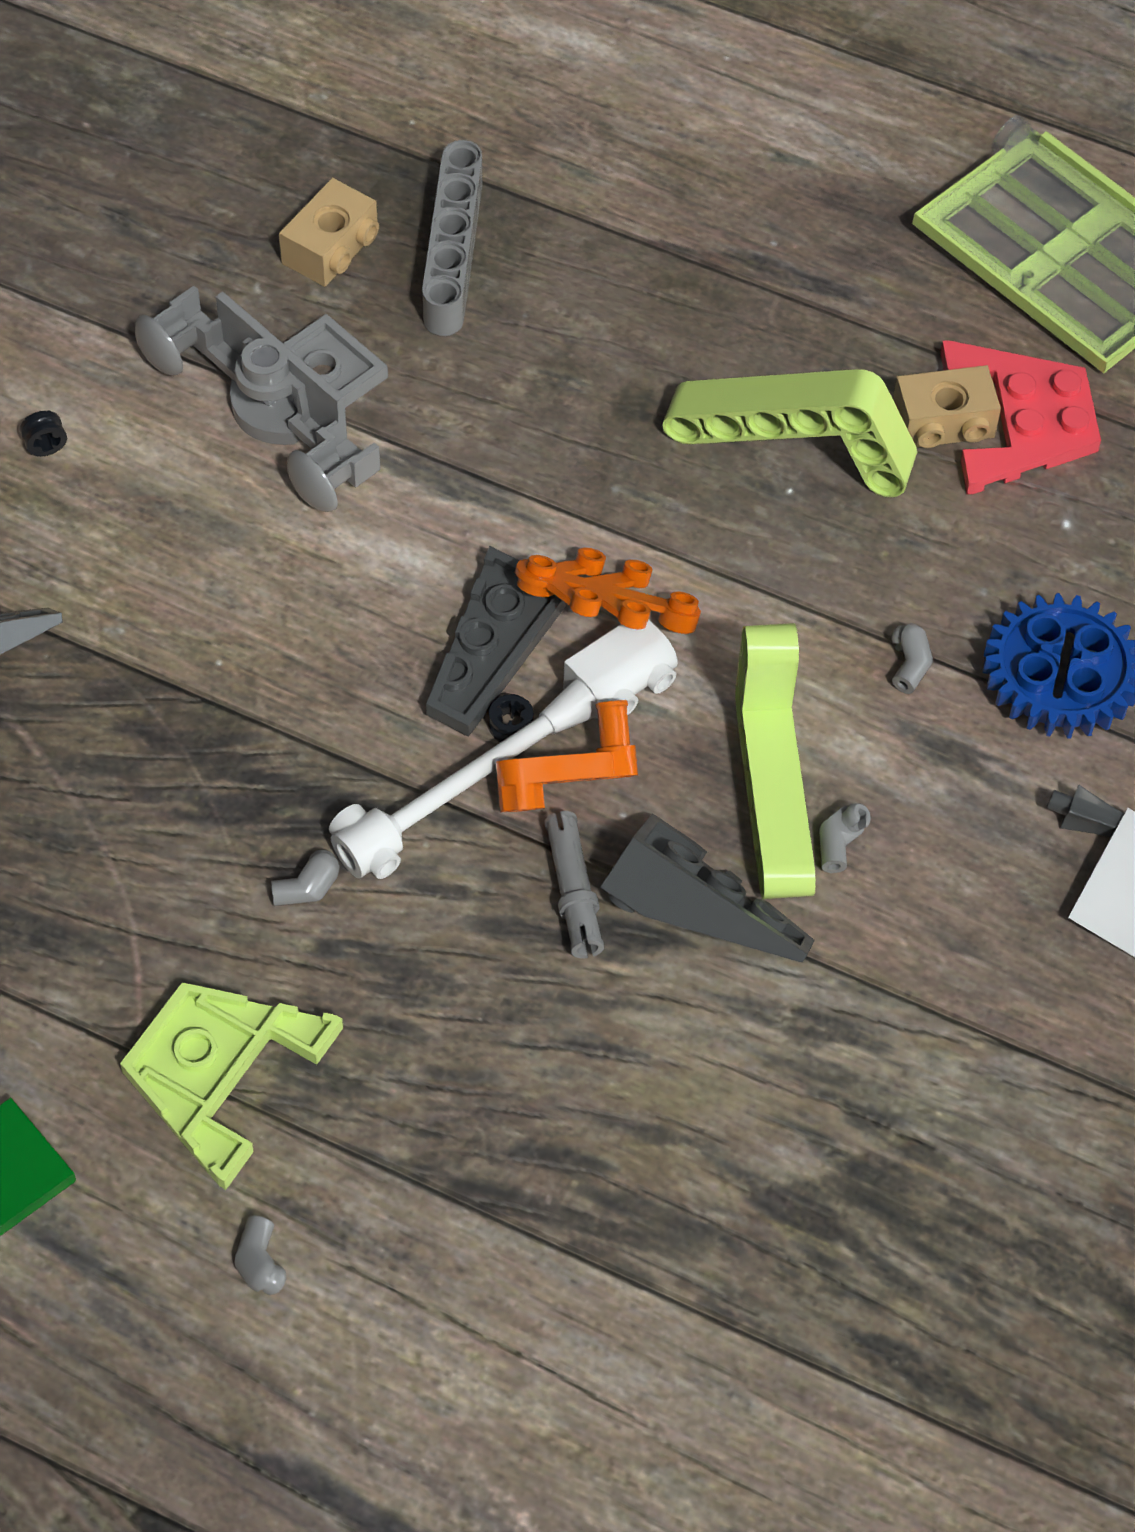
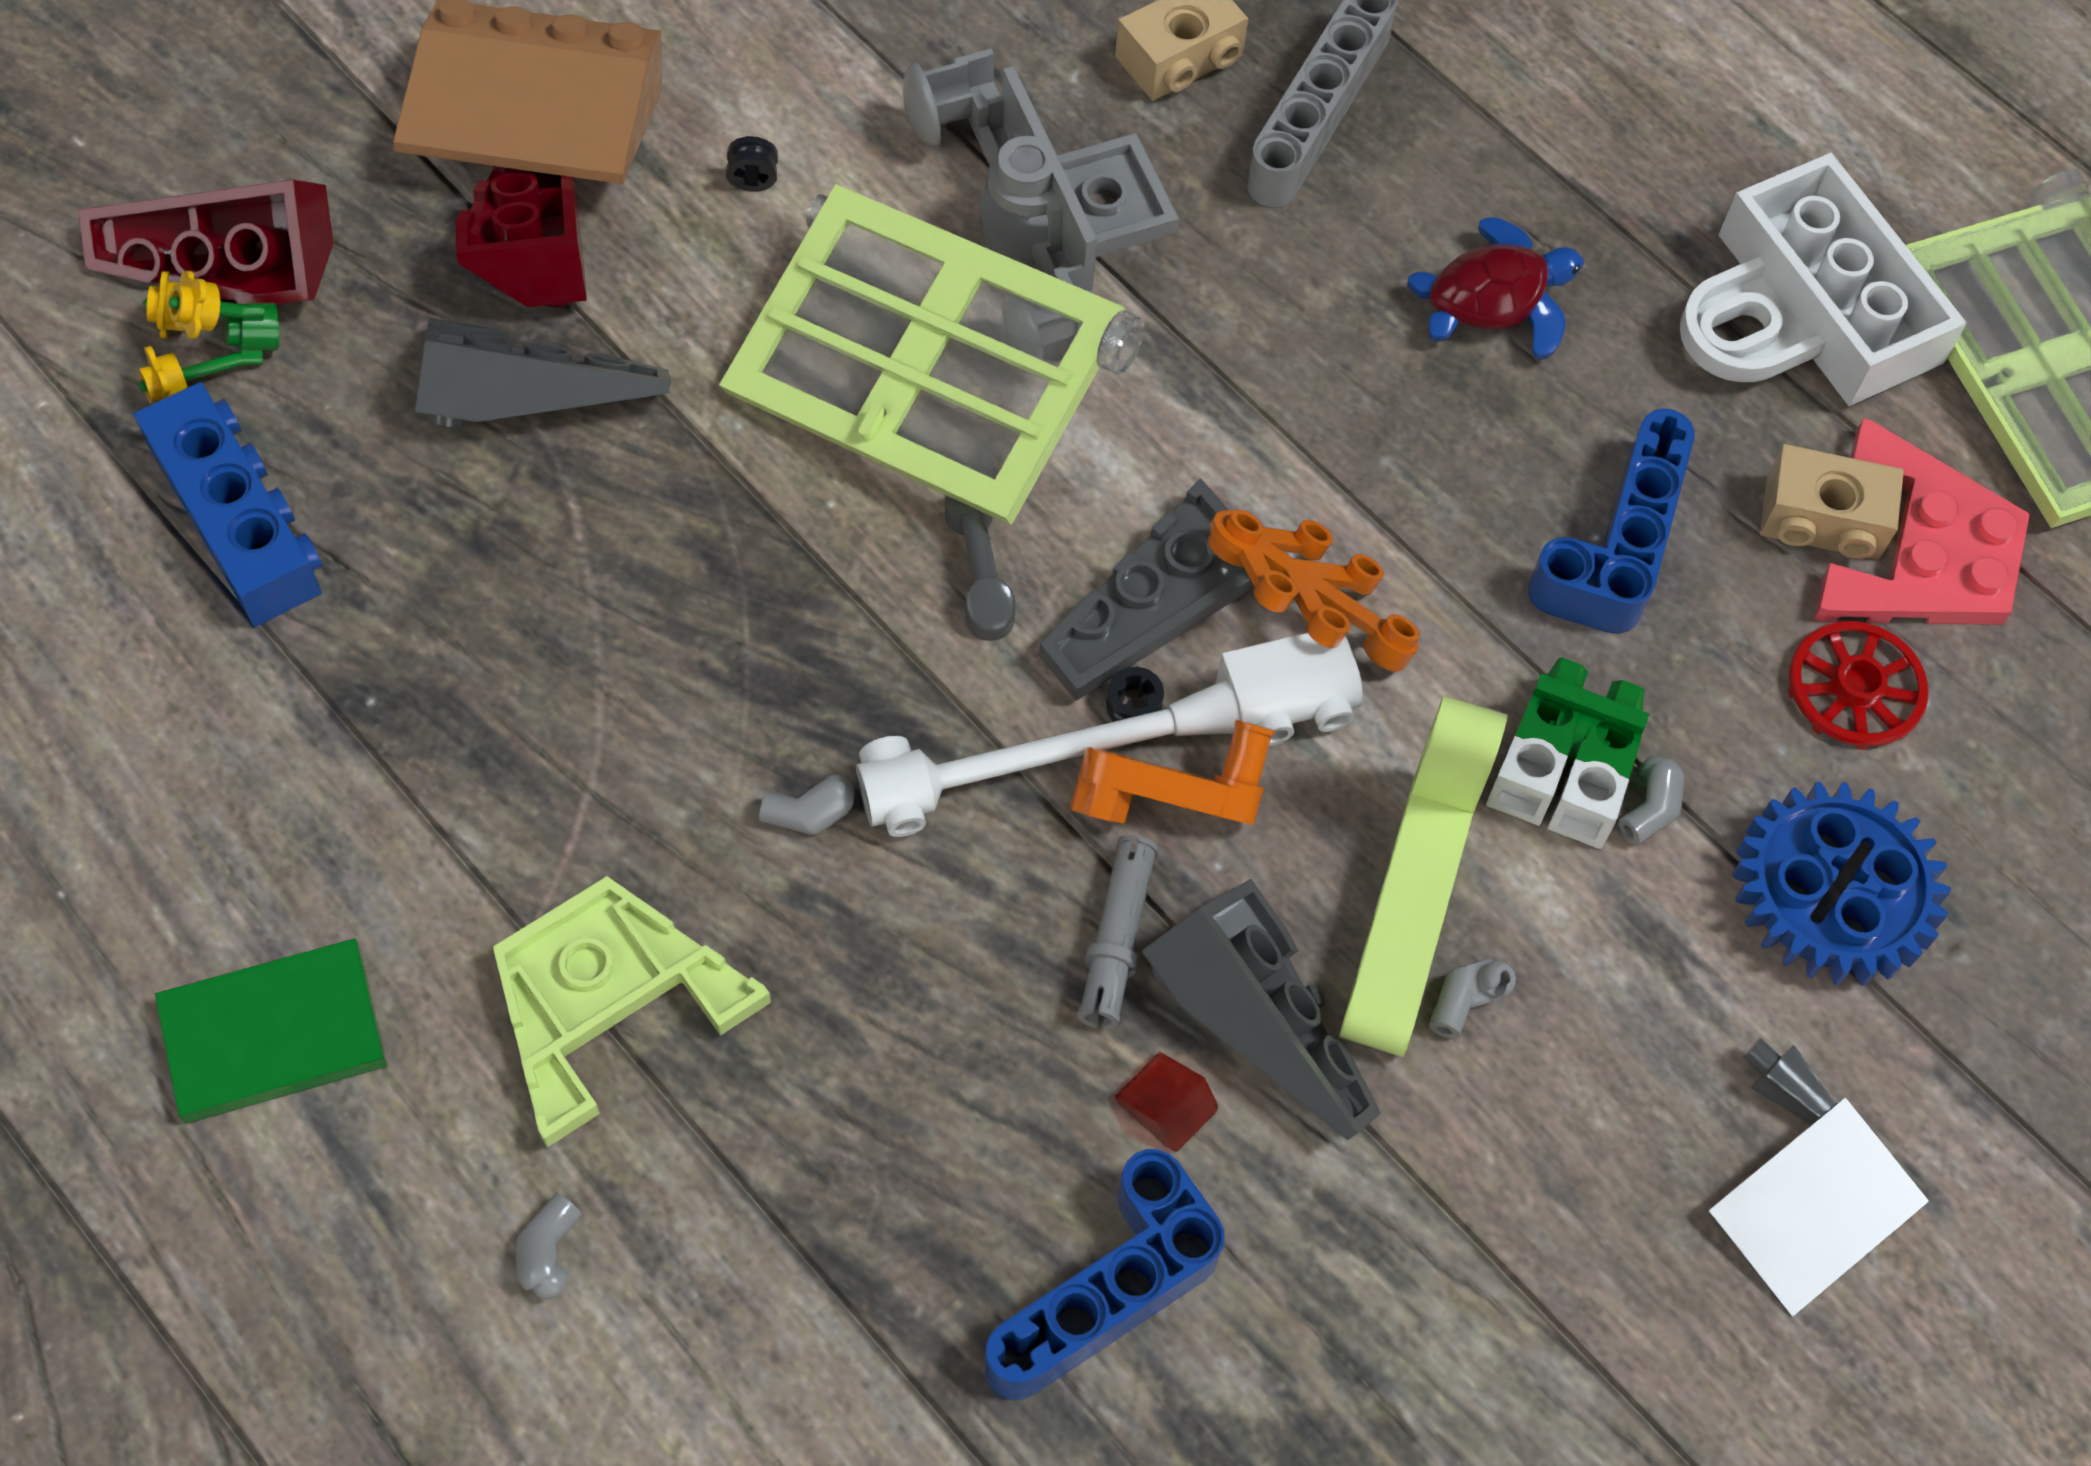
camera: 20 degrees right, 5 degrees up
(247, 523) = (927, 352): none -> door
(373, 687) = (990, 599): none -> dark grey bar
(646, 335) = (1500, 287): none -> animal
(662, 987) = (1168, 1100): none -> clear red slope
(673, 1131) = (1095, 1287): none -> blue beam
(801, 406) = (1647, 441): yellowish green beam -> none
(818, 513) = (1635, 518): none -> blue beam
(847, 626) = (1576, 729): none -> hips
(877, 256) = (1825, 287): none -> white brick
(1017, 527) = (1857, 684): none -> red wheel

